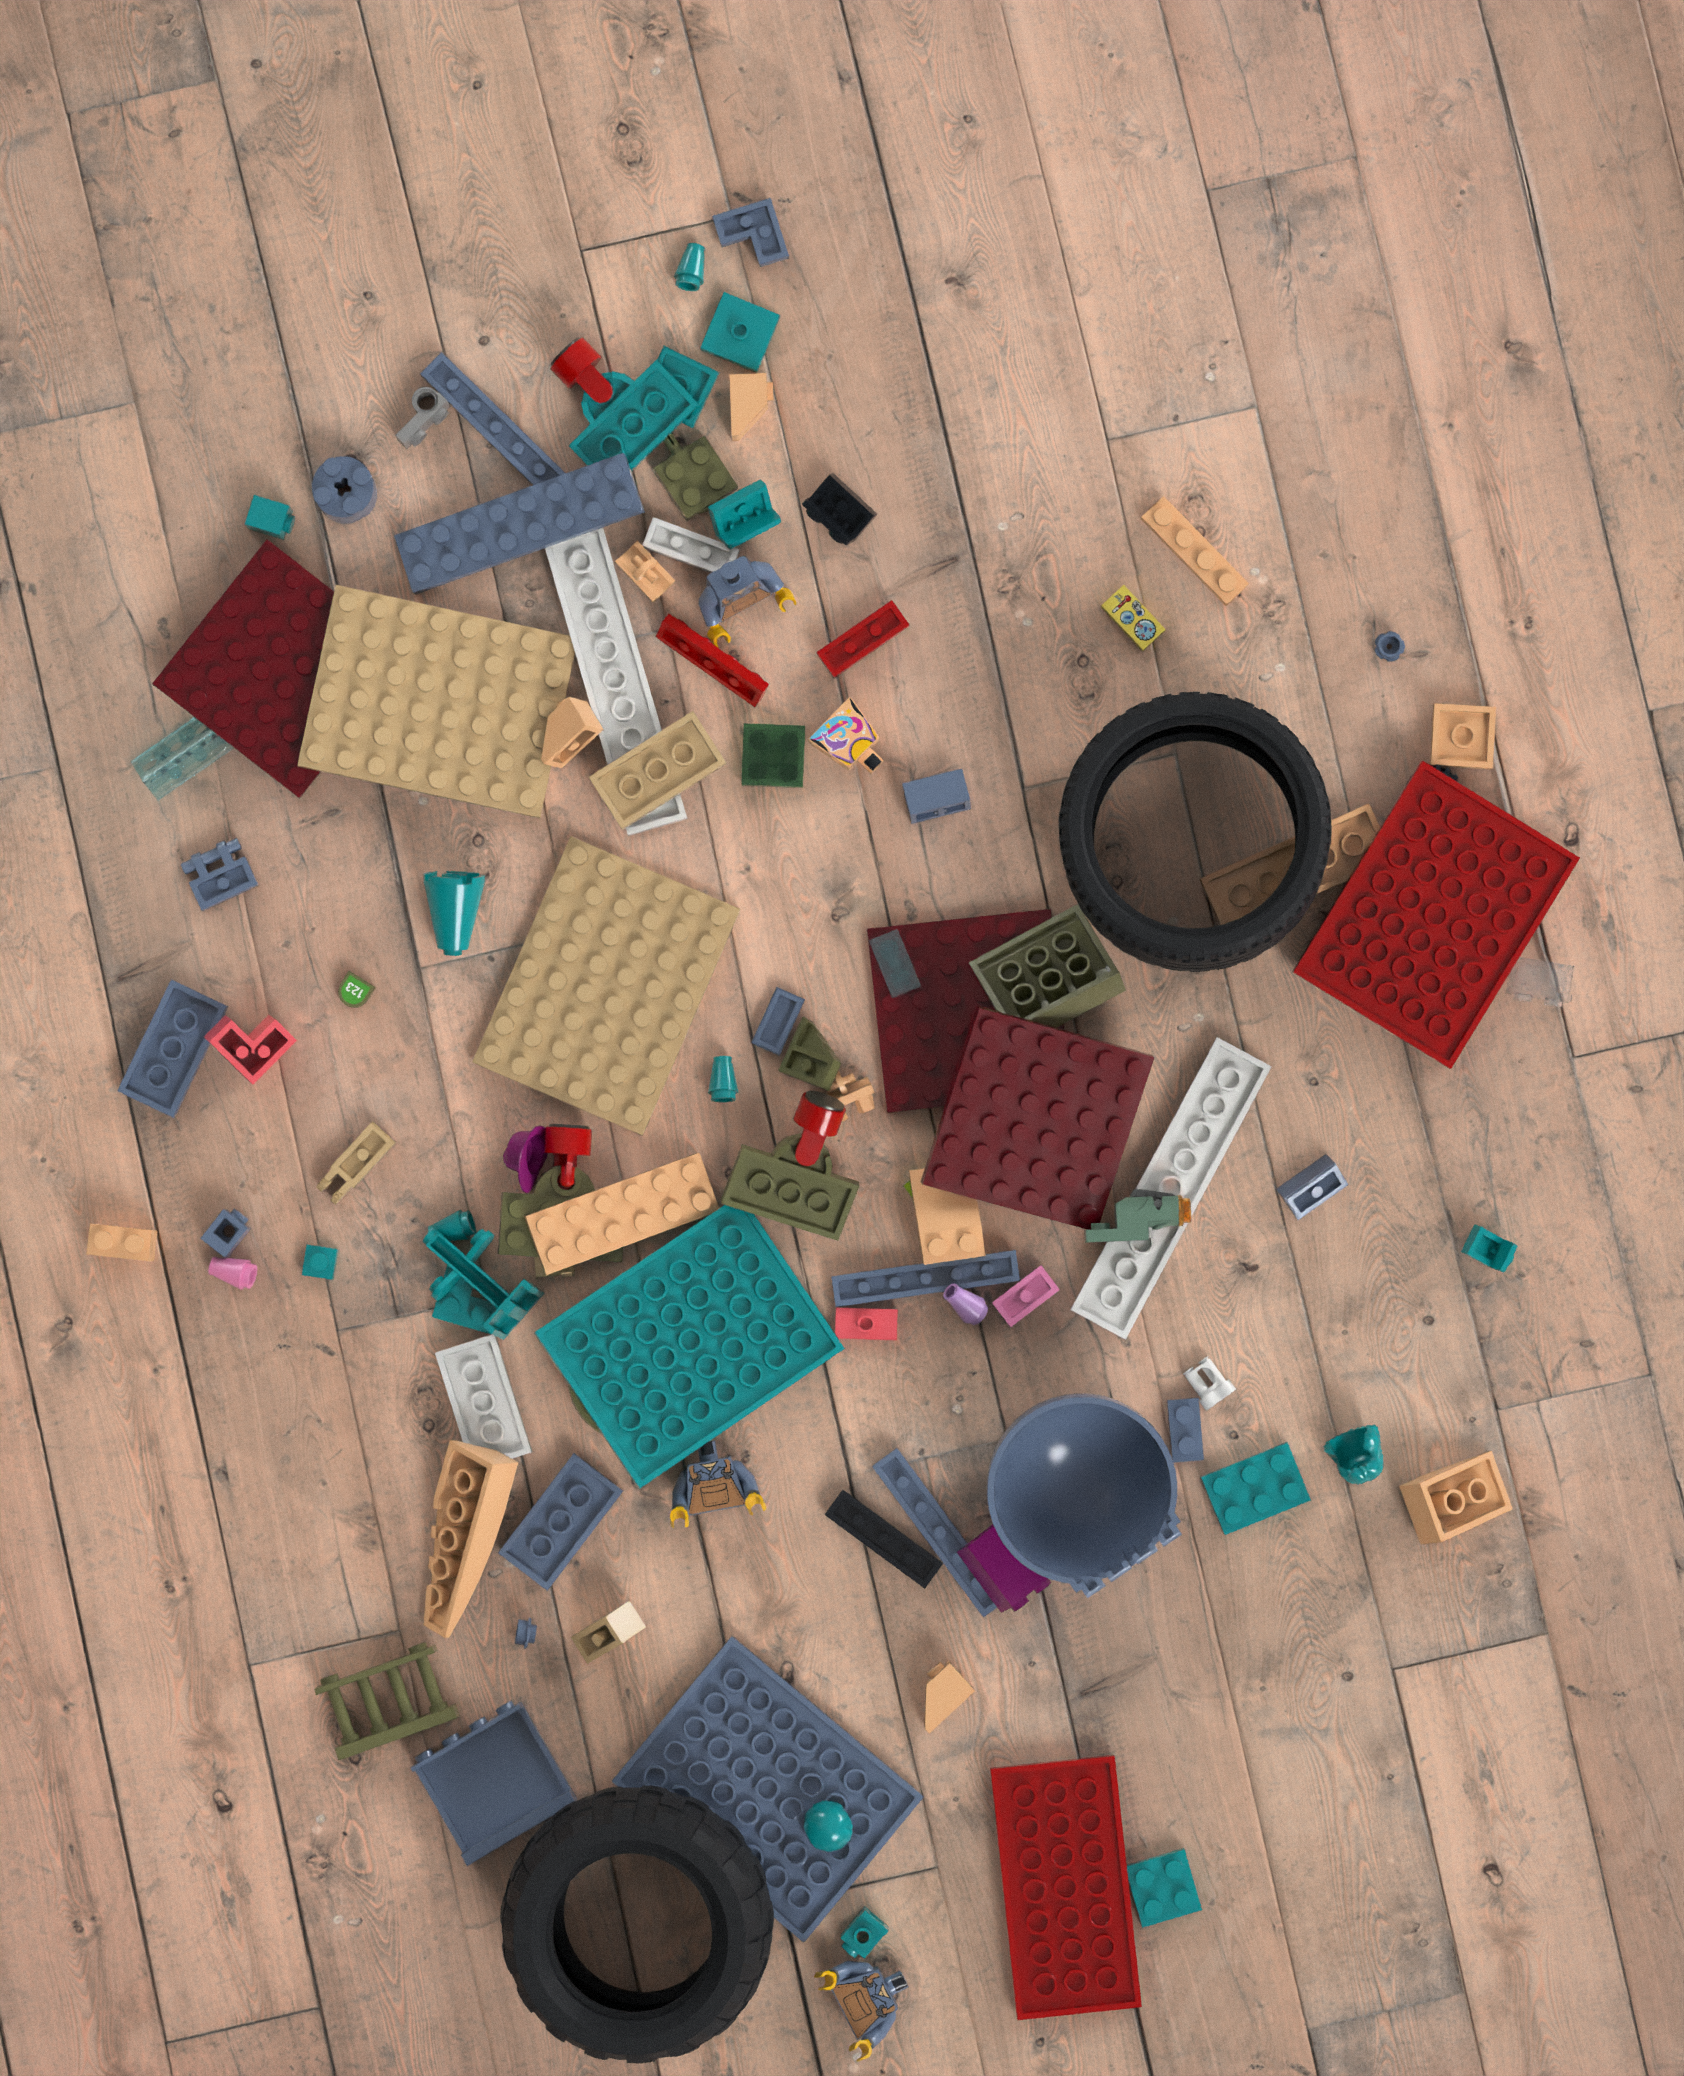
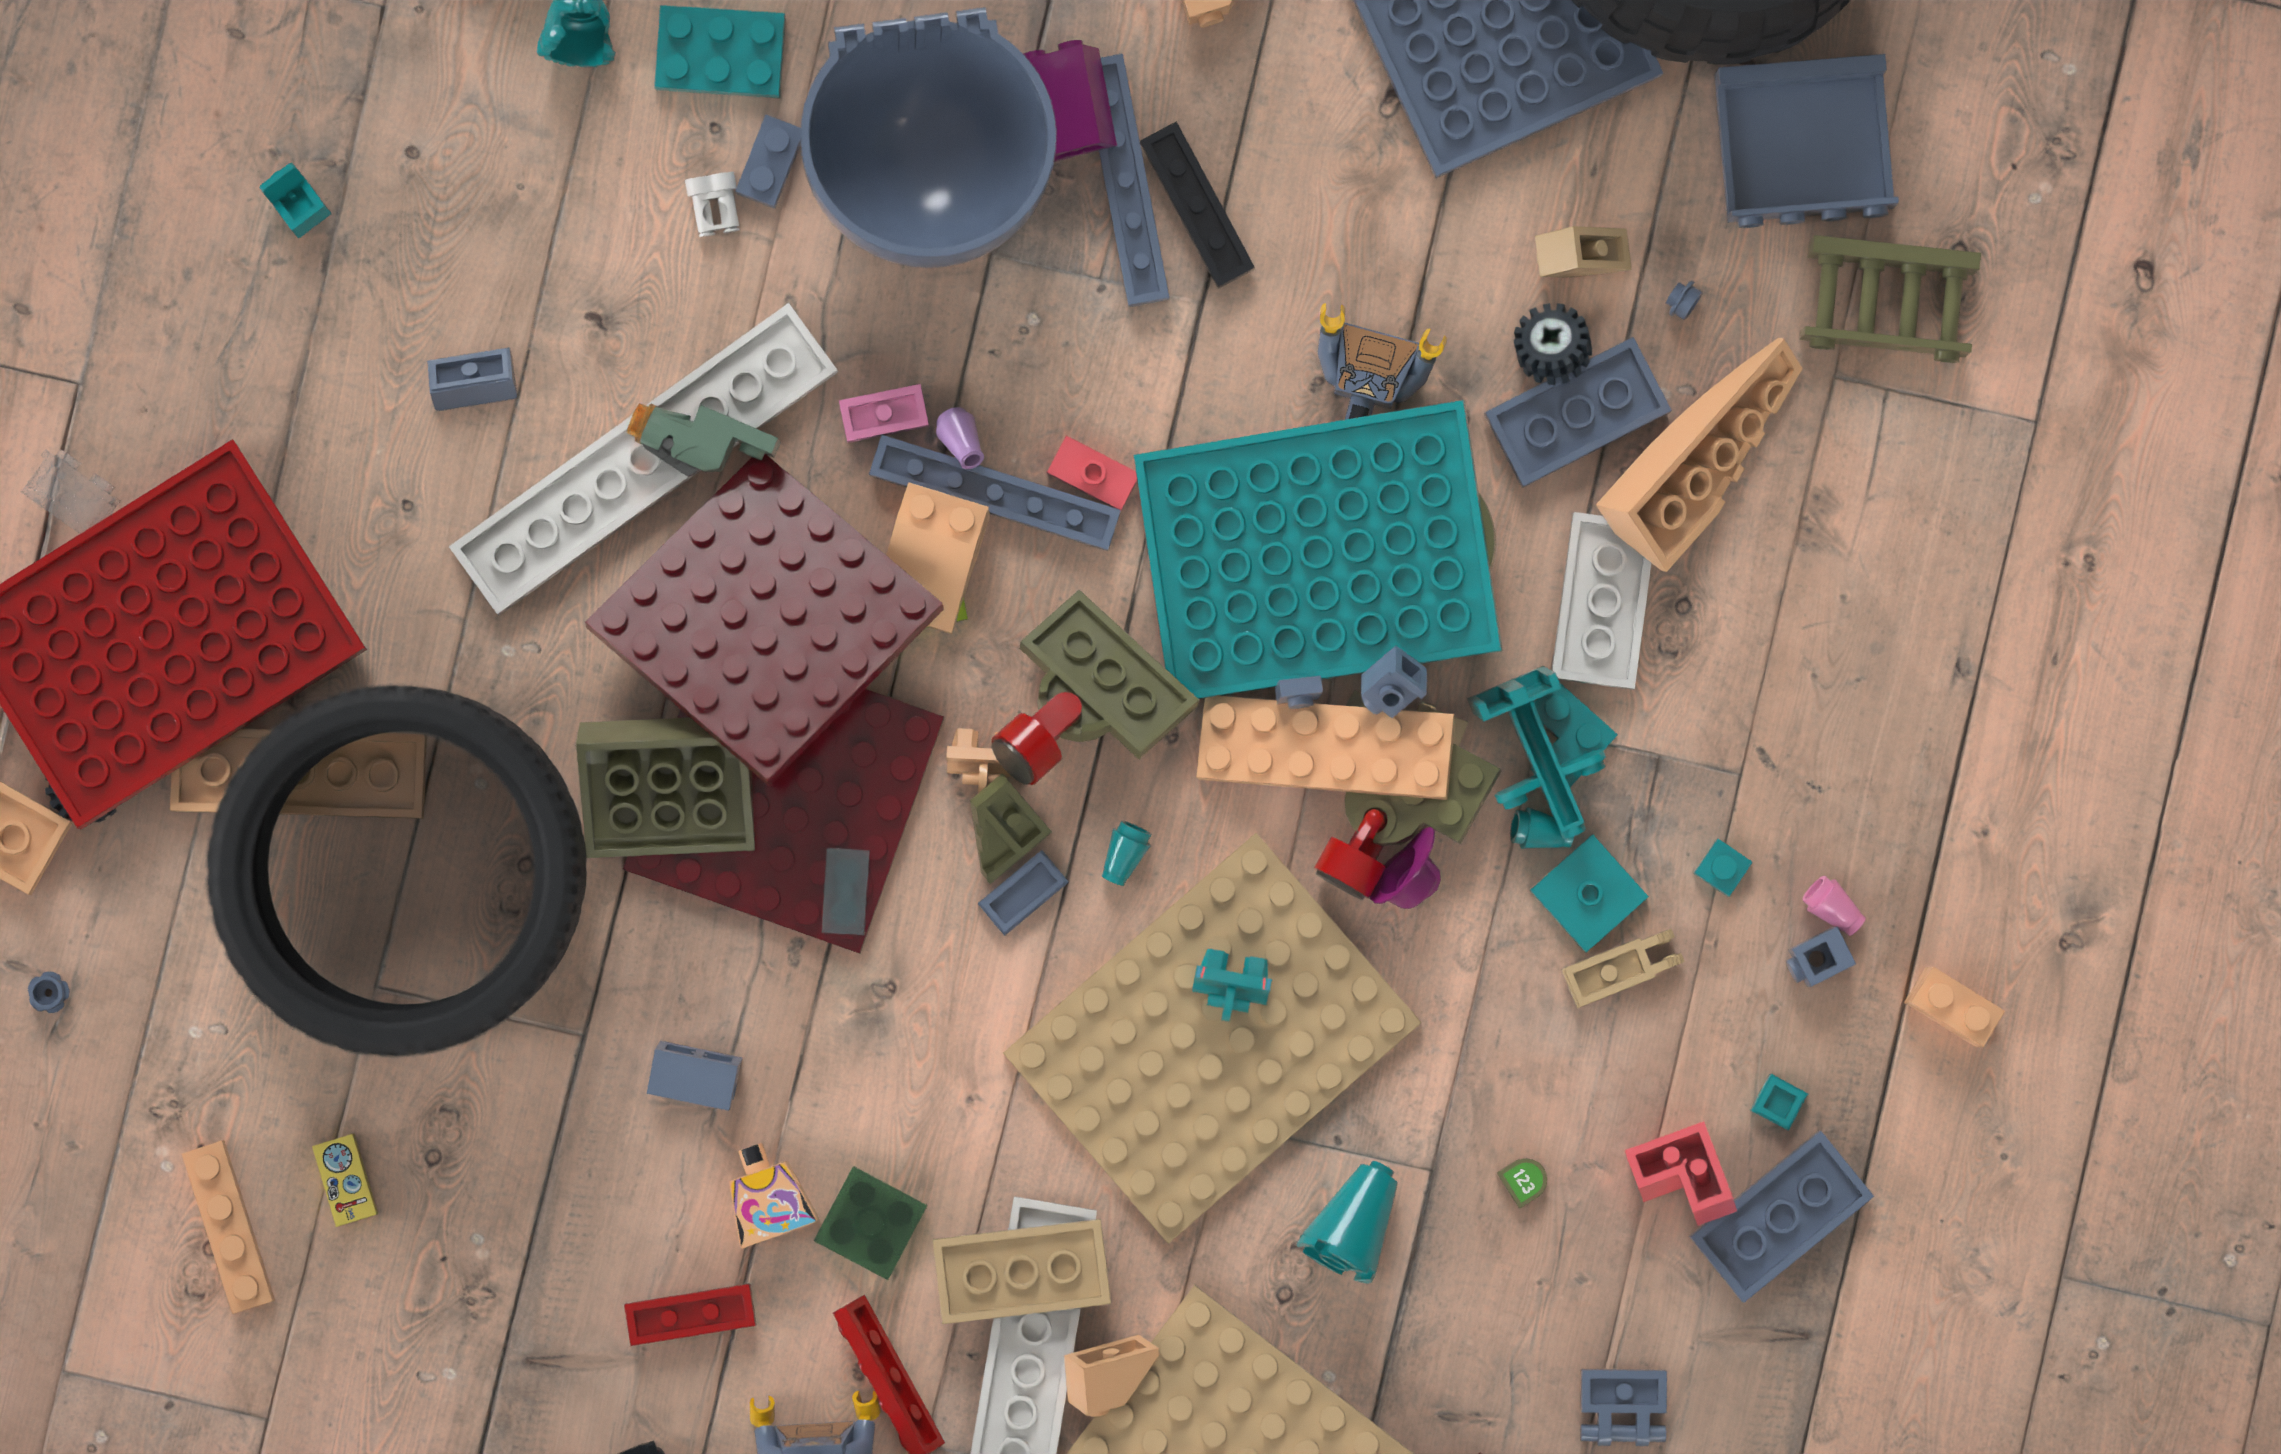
camera: 155 degrees left, 0 degrees up
(209, 1124) = (1779, 1101): none -> teal tile
(401, 1201) = (1589, 893): none -> teal plate
(596, 1275) = (1393, 683): none -> sand blue brick
(596, 1548) = (1548, 358): none -> black wheel
(607, 1022) = (1232, 989): none -> teal hips
(657, 1240) = (1299, 691): none -> sand blue plate

